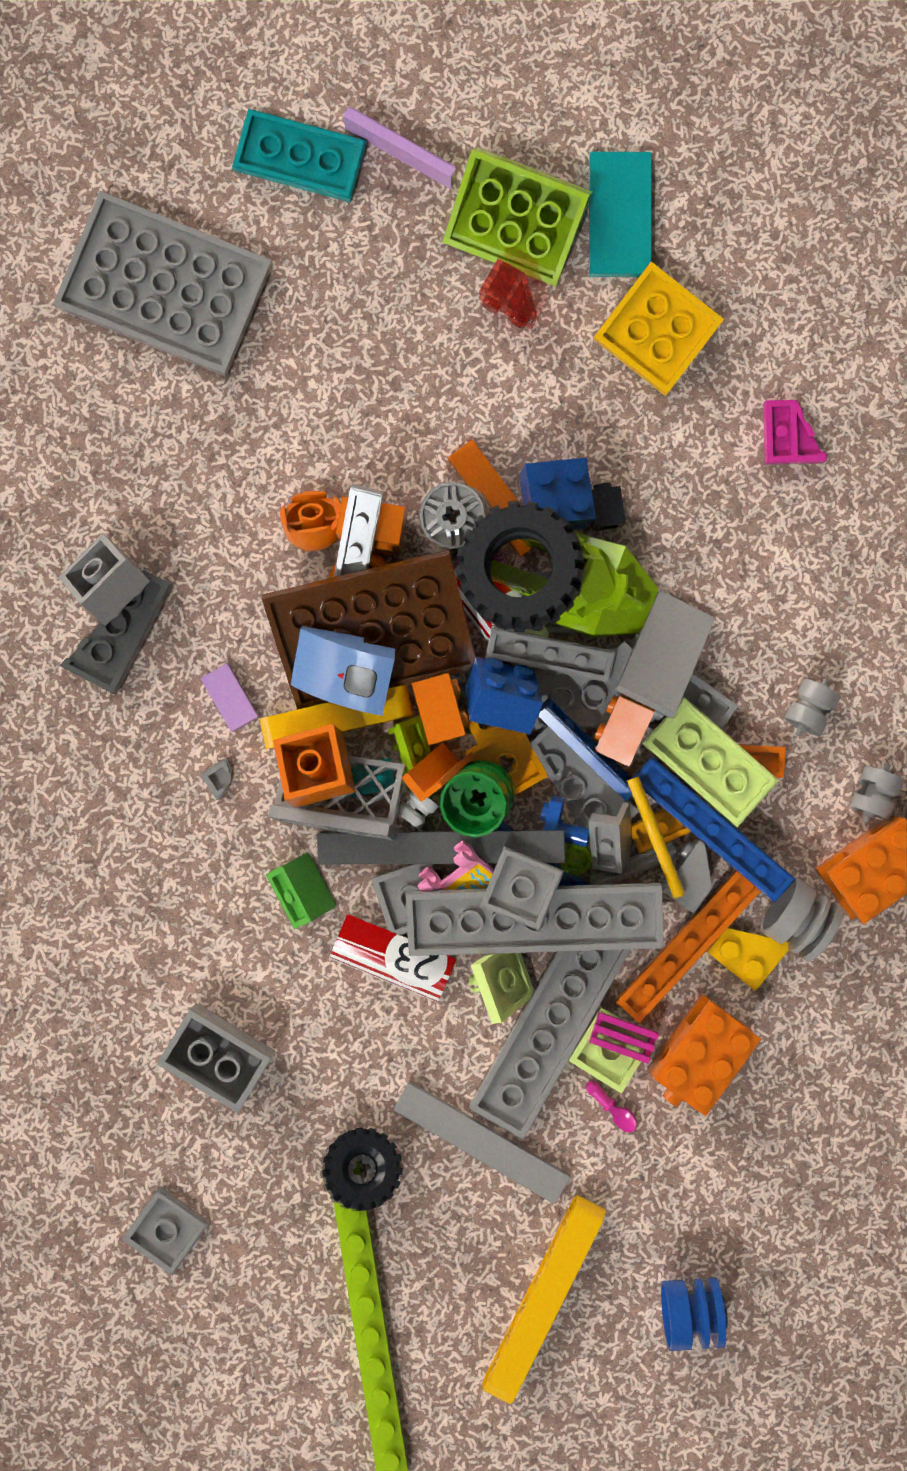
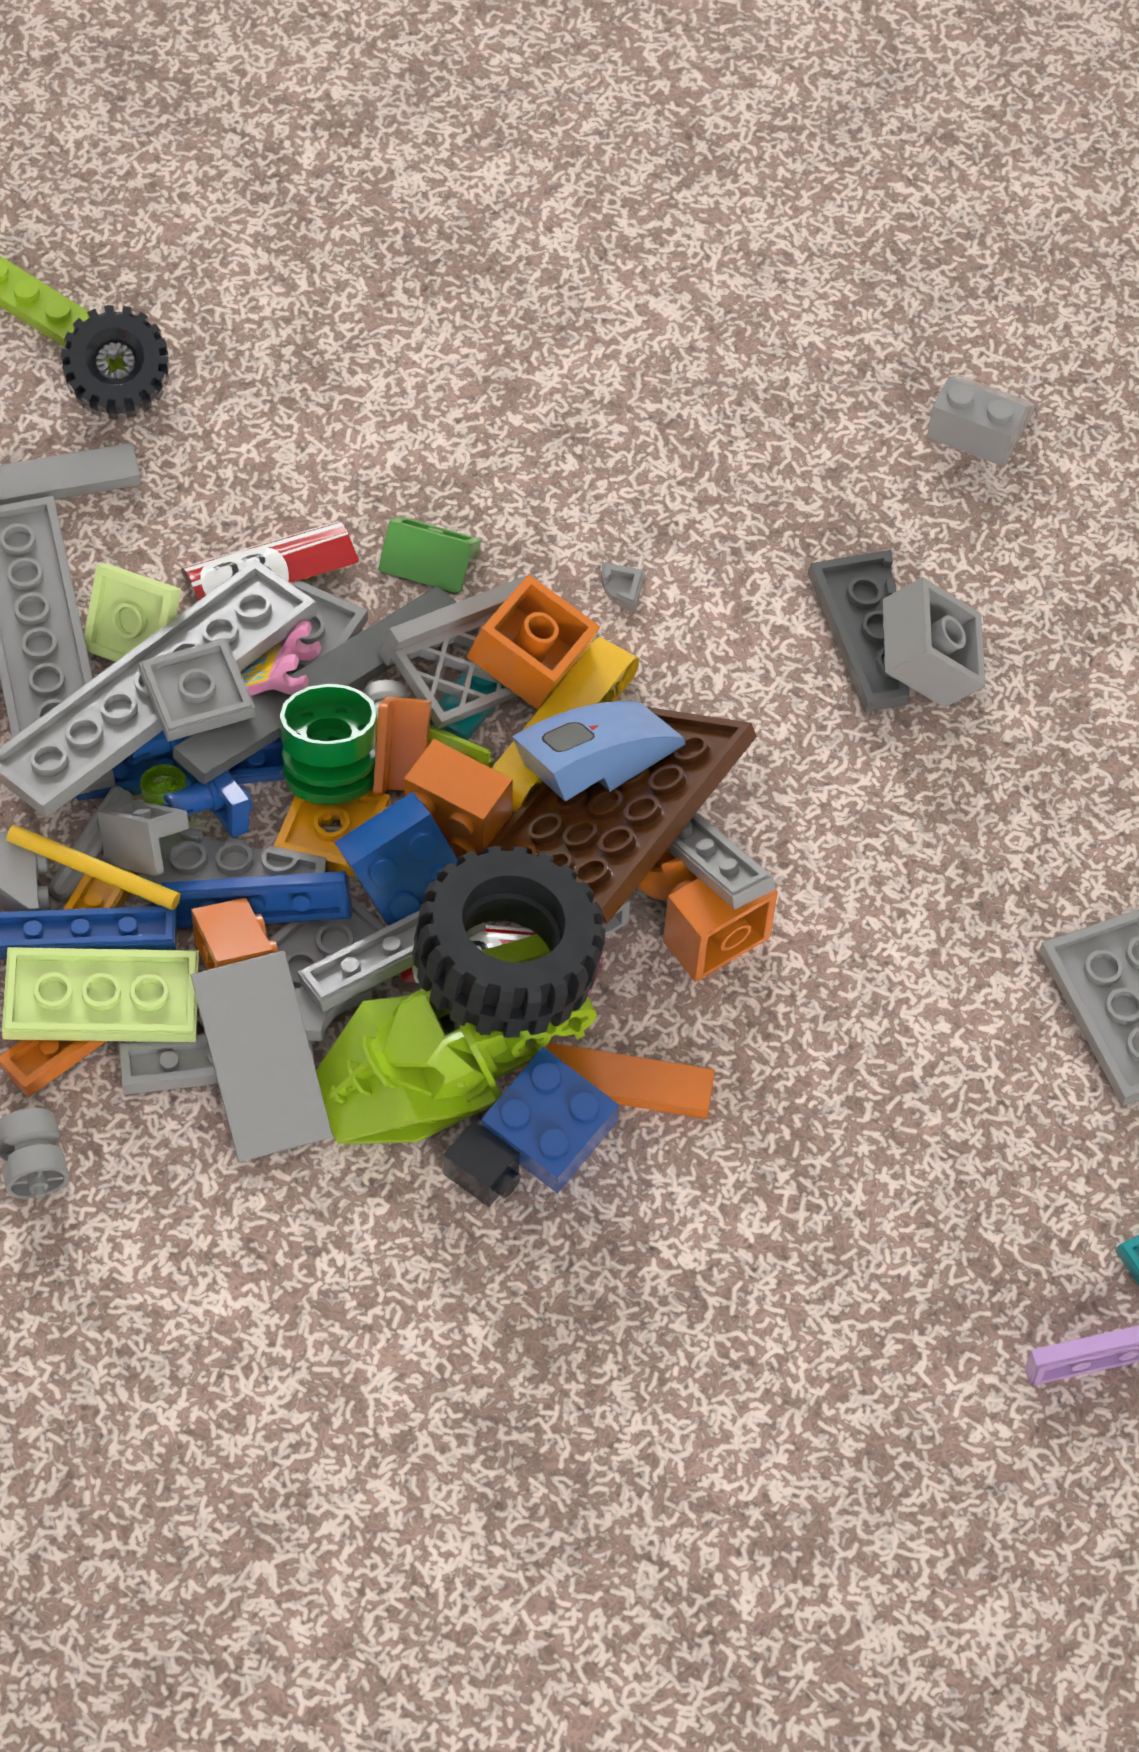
camera: 135 degrees right, 30 degrees down
(166, 1230) = (260, 197): light grey tile -> none
(216, 1057) = (361, 348): light grey brick -> none
(229, 697) = (691, 661): lavender tile -> none
(311, 520) = (799, 865): orange cylinder -> none
(438, 507) = (639, 1000): light grey wheel -> none
(508, 293) = (829, 1298): clear red slope -> none
(516, 215) = (917, 1396): lime slope -> none
(619, 213) = (801, 1515): teal tile -> none
(658, 328) = (620, 1412): yellow plate -> none
(788, 436) = (342, 1434): dark pink wing -> none

